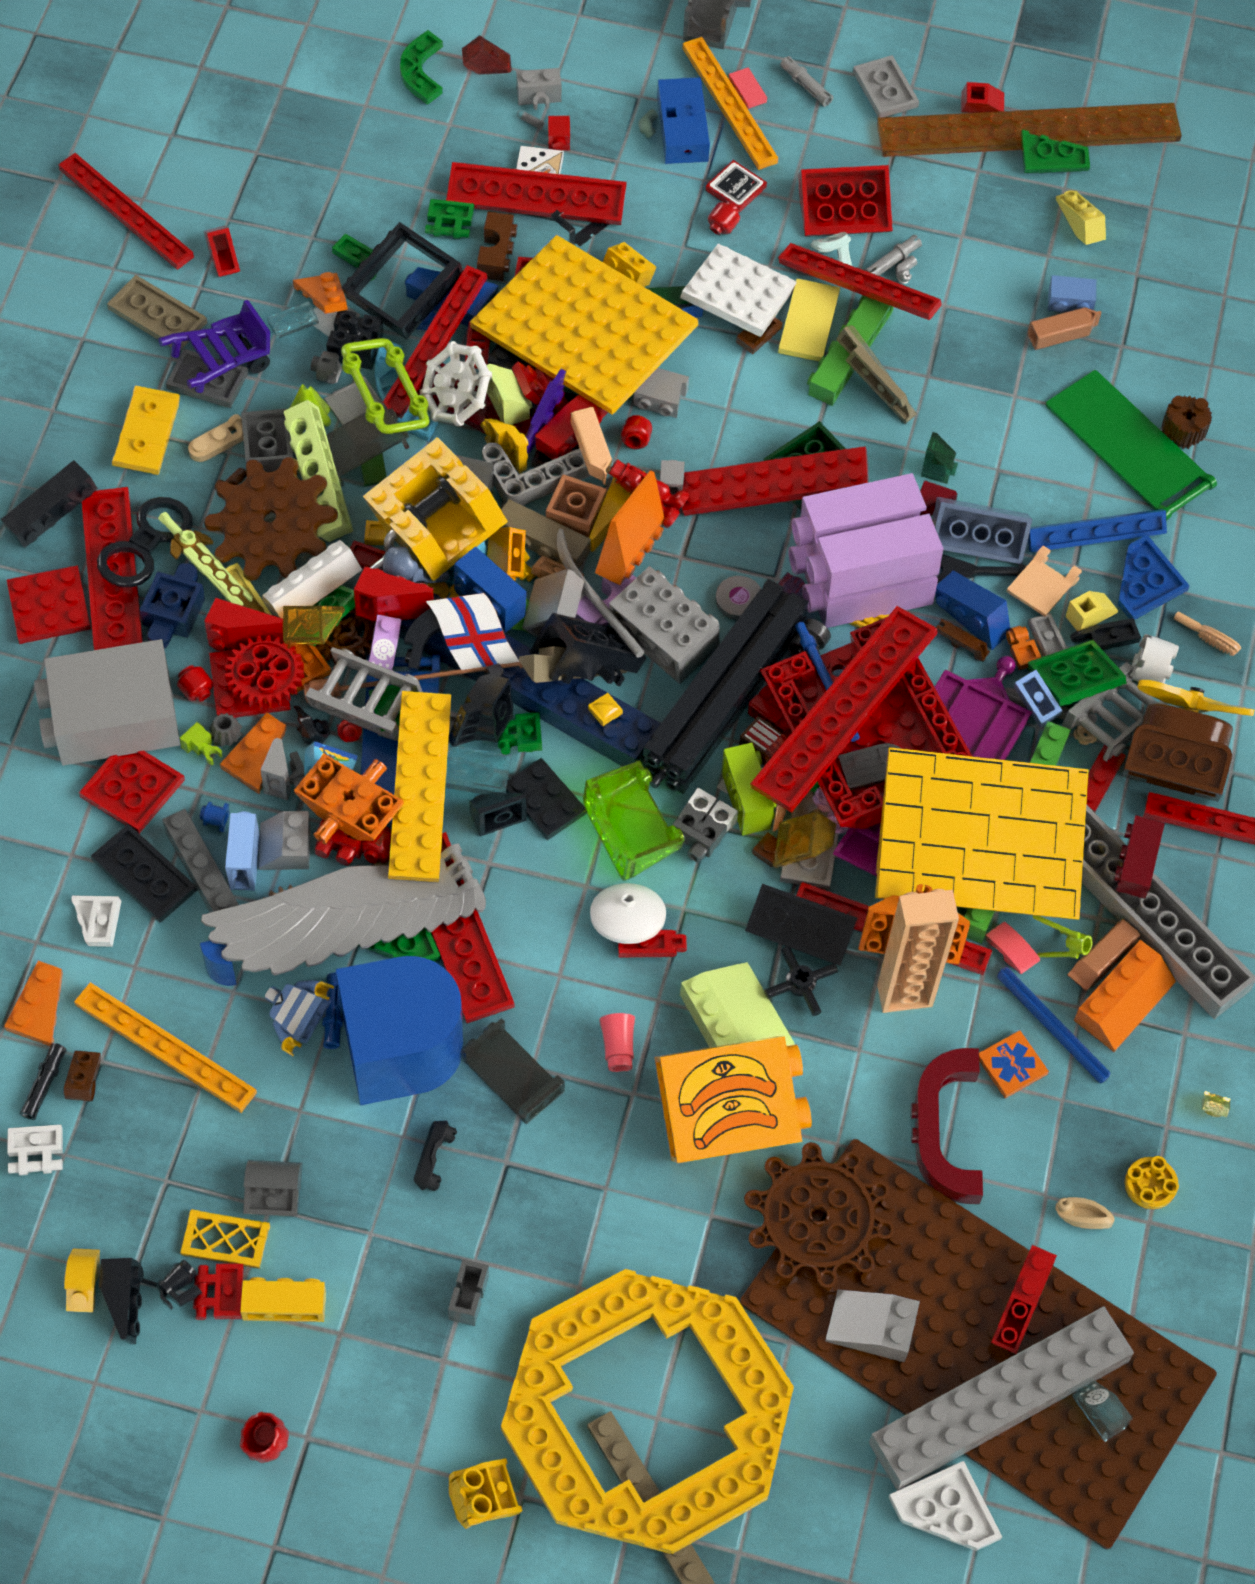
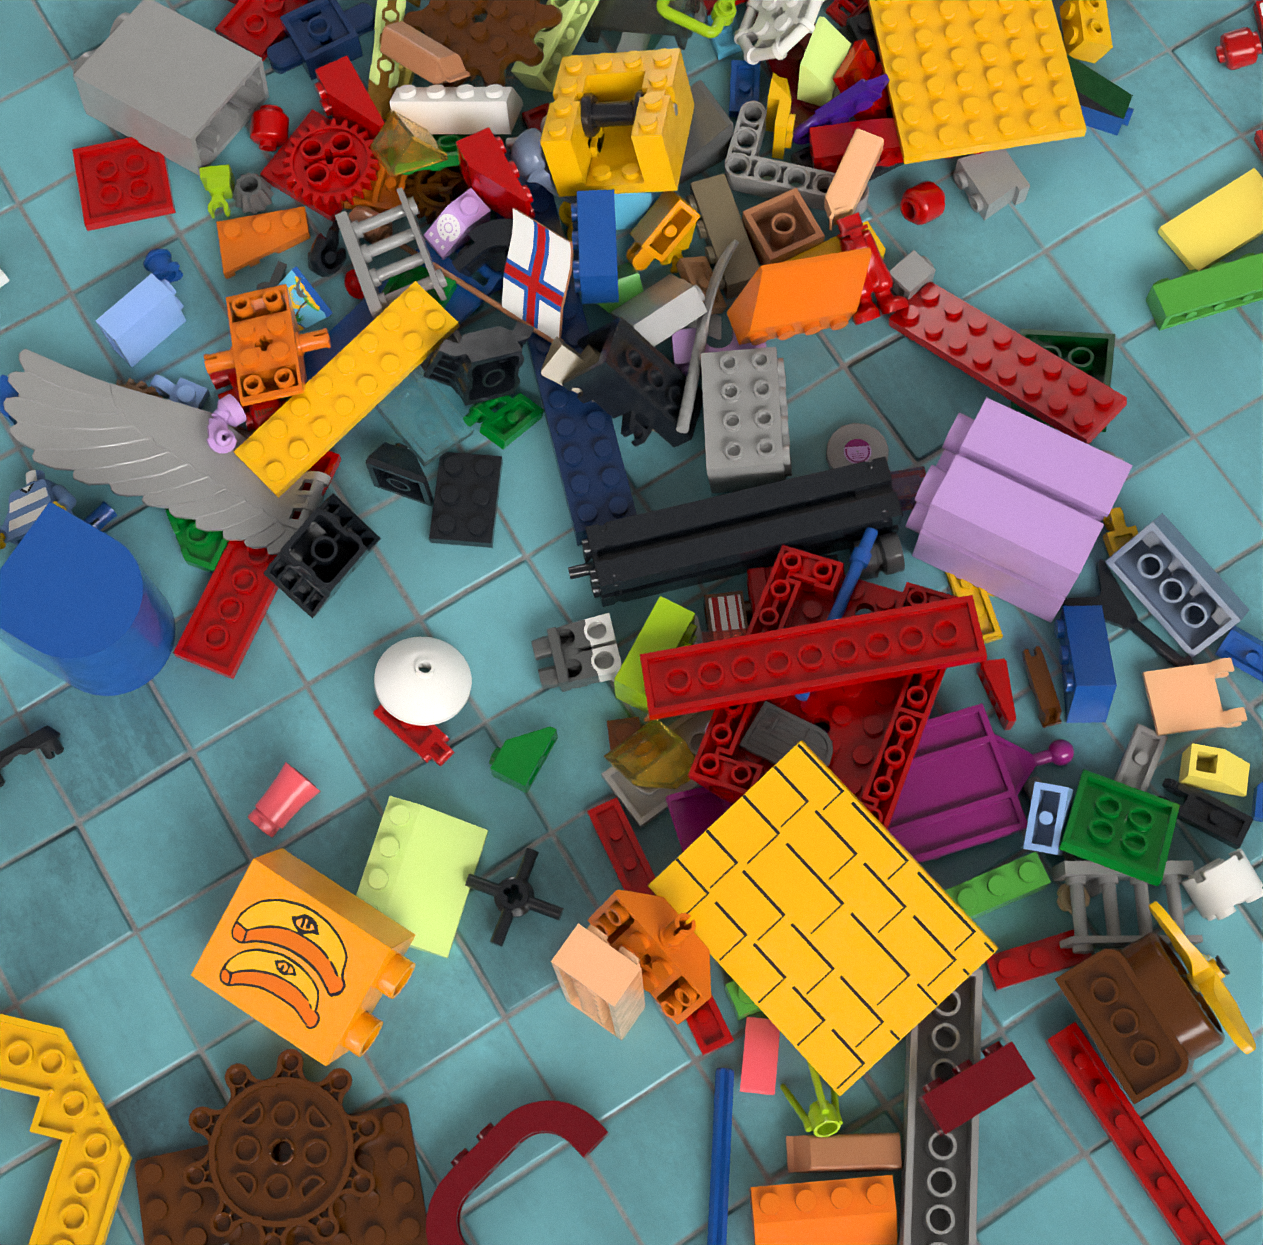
camera: 50 degrees right, 10 degrees up
(144, 873) = (51, 271): black plate -> none
(198, 862) = (105, 285): dark grey brick -> none
(261, 563) = (421, 54): none -> nougat piece
(275, 772) = (239, 259): light grey tile -> none
(285, 841) = (189, 341): light grey slope -> none
(304, 875) = (183, 392): none -> light blue plate
(361, 857) = (227, 413): none -> lavender arm
(463, 442) = (743, 85): none -> blue plate
(504, 889) = (321, 555): none -> black slope
(512, 1072) = (167, 741): clear smoke panel -> none
(605, 709) = (592, 458): yellow tile -> none
(629, 820) = (512, 590): clear neon green windscreen -> none
(728, 907) = (522, 757): none -> green slope
(738, 290) = (1175, 134): white plate -> none
(753, 342) = (1156, 195): reddish brown plate -> none
(801, 924) = (570, 840): black plate -> none
(874, 374) = (1232, 328): dark tan wedge -> none
(930, 493) = (1149, 507): dark red slope -> none
(939, 460) = (1209, 475): clear green slope -> none
(942, 658) = (997, 685): none -> red slope
(1012, 1064) = (636, 1176): orange tile -> none
(1021, 649) = (1095, 754): orange plate -> none

